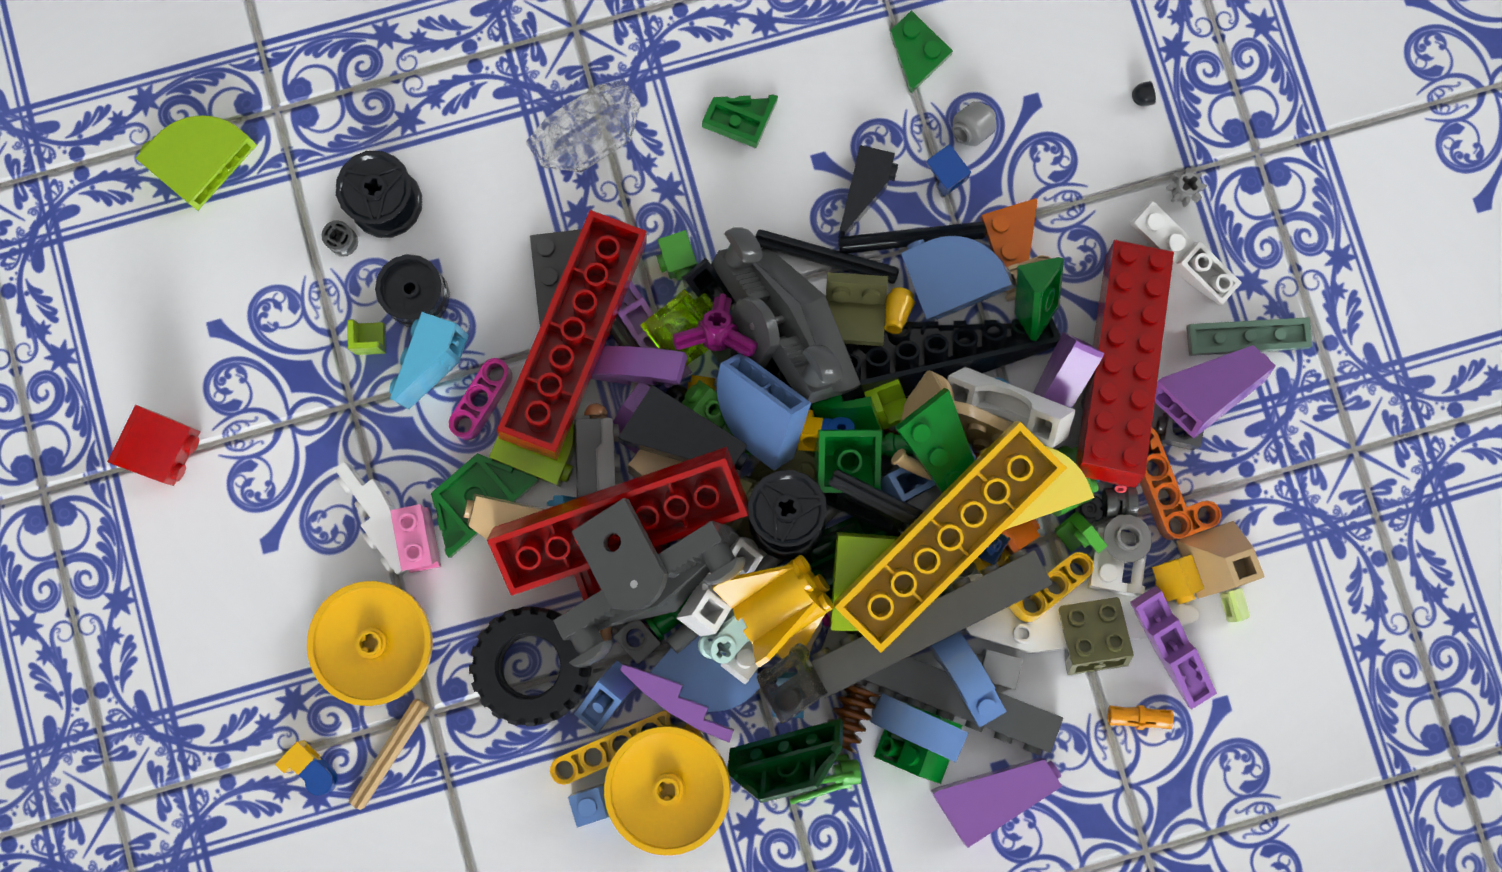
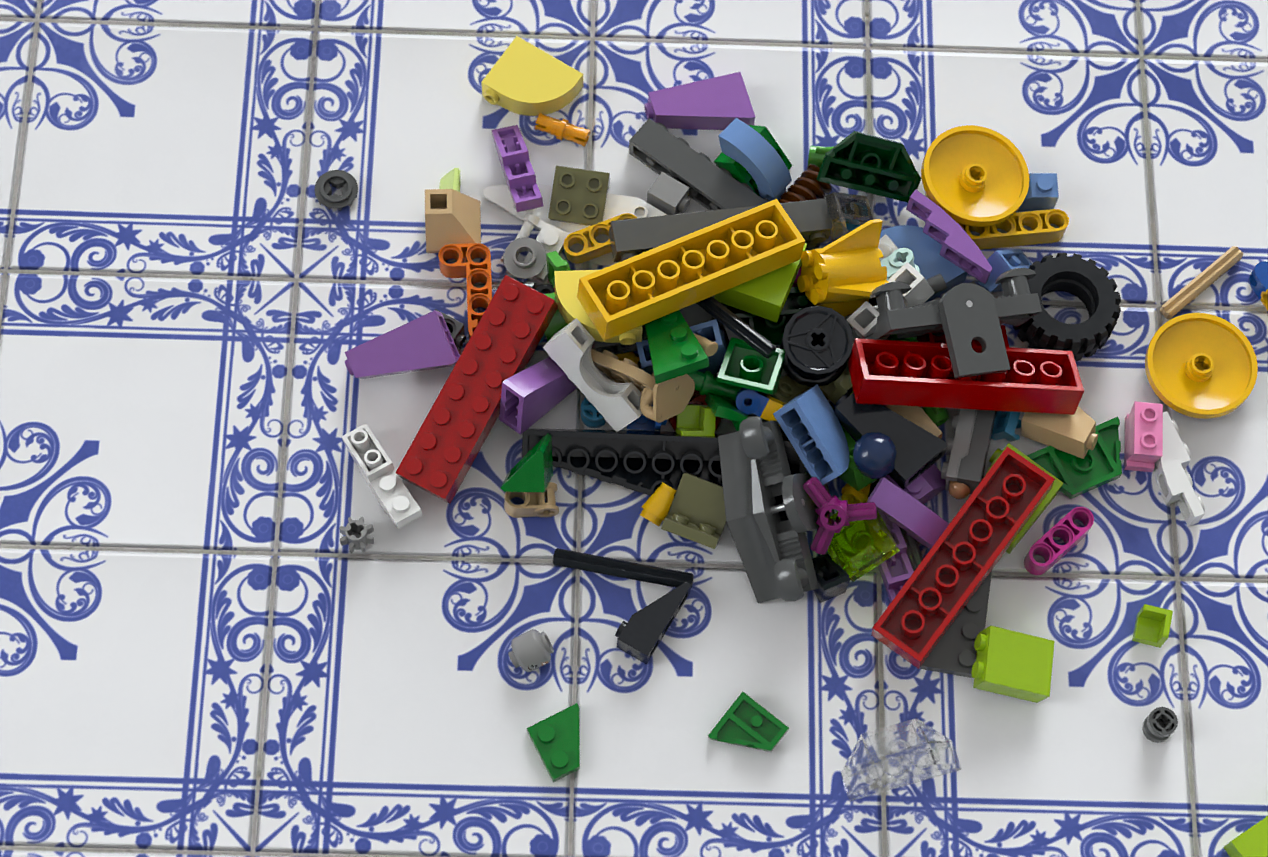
camera: 170 degrees left, 15 degrees down
(379, 194) = (1114, 745): black piece -> none
(400, 278) = (1101, 650): black wheel -> none
(430, 357) = (1098, 584): medium azure slope -> none
(498, 250) = (1013, 664): none -> lime brick
(676, 255) = (846, 613): bright green brick -> none
(692, 401) = (875, 455): none -> dark blue hair
(825, 255) = (707, 575): black axle -> none
(948, 169) = (570, 613): blue panel -> none
(954, 274) = (597, 516): medium blue brick -> none
(969, 678) = (699, 181): medium blue arch -> none
(1011, 231) = (530, 546): orange wing -> none
(1144, 94) = (361, 632): black hinge -> none
(1178, 579) = (493, 217): yellow brick -> none
(1198, 765) = (530, 81): none -> light yellow brick
(1237, 335) = (352, 392): sand green plate -> none
(1368, 559) = (336, 179): none -> dark grey gear

